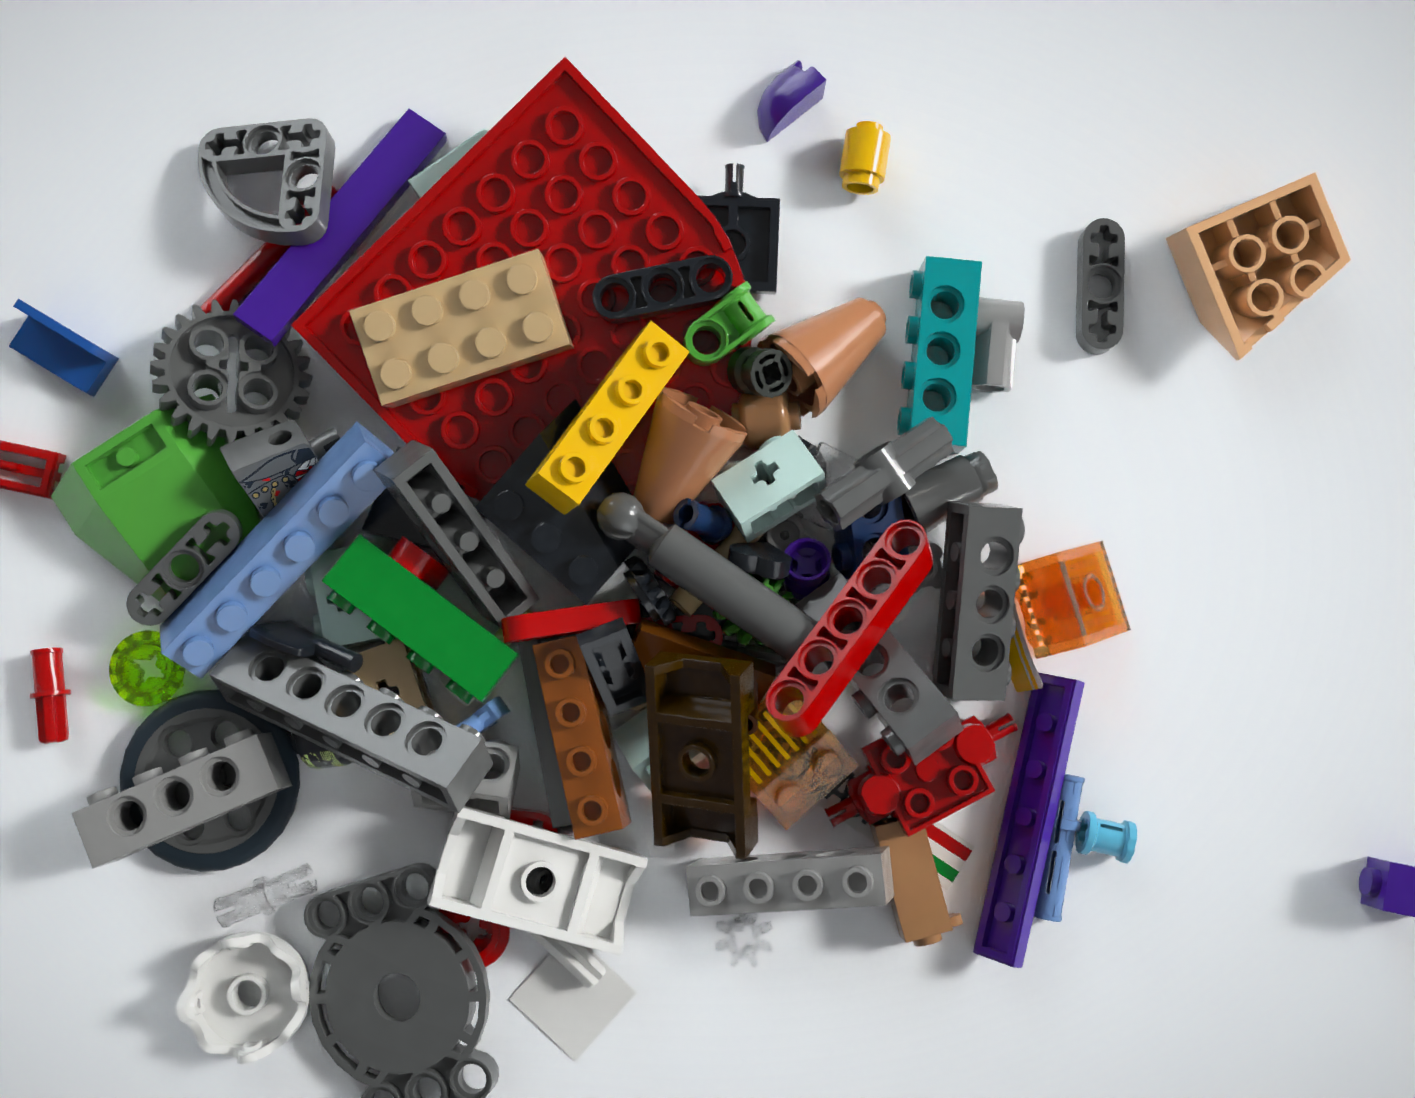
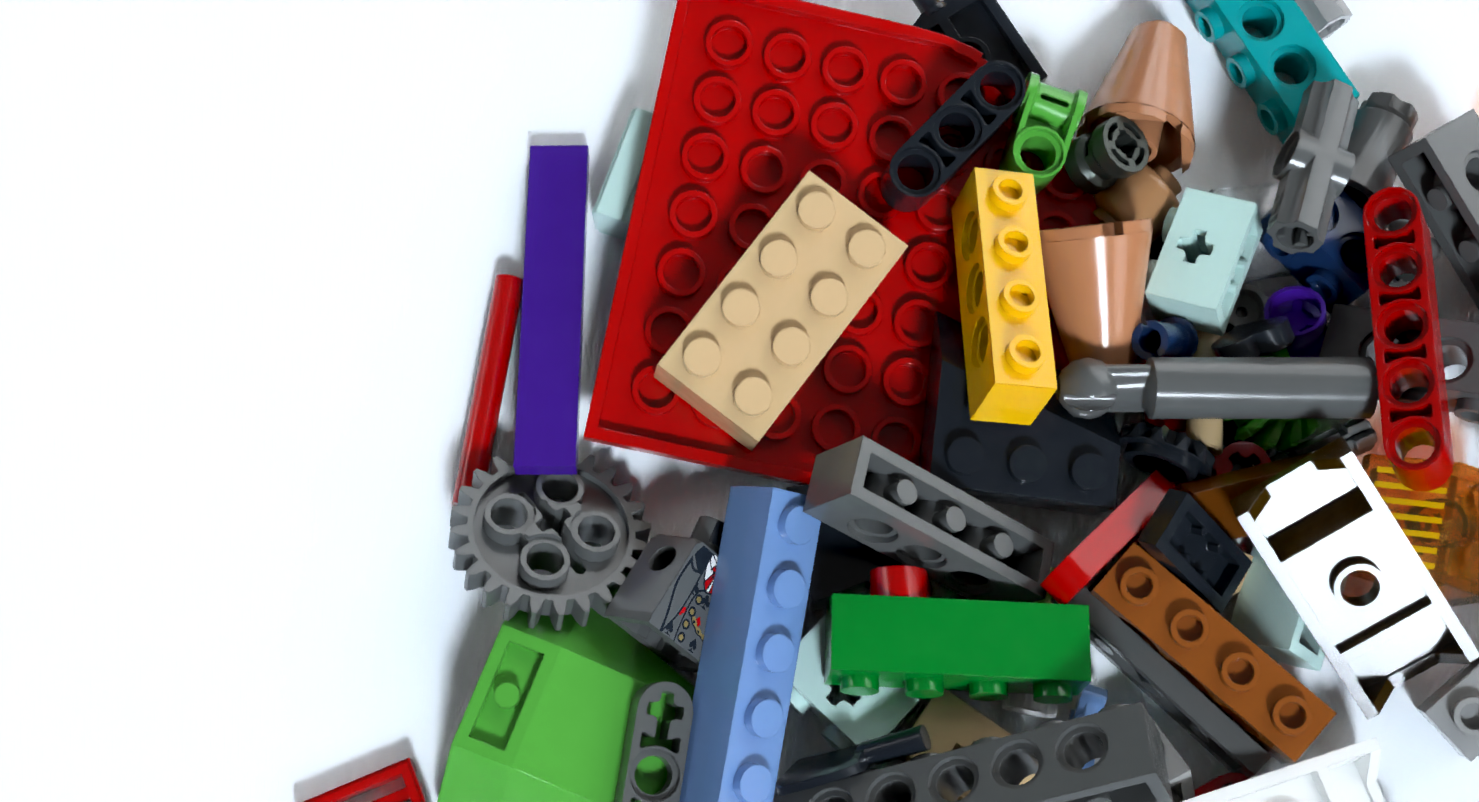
camera: 30 degrees left, 10 degrees down
(62, 350) = (331, 642): blue panel -> none
(234, 152) = (455, 269): dark grey beam -> none

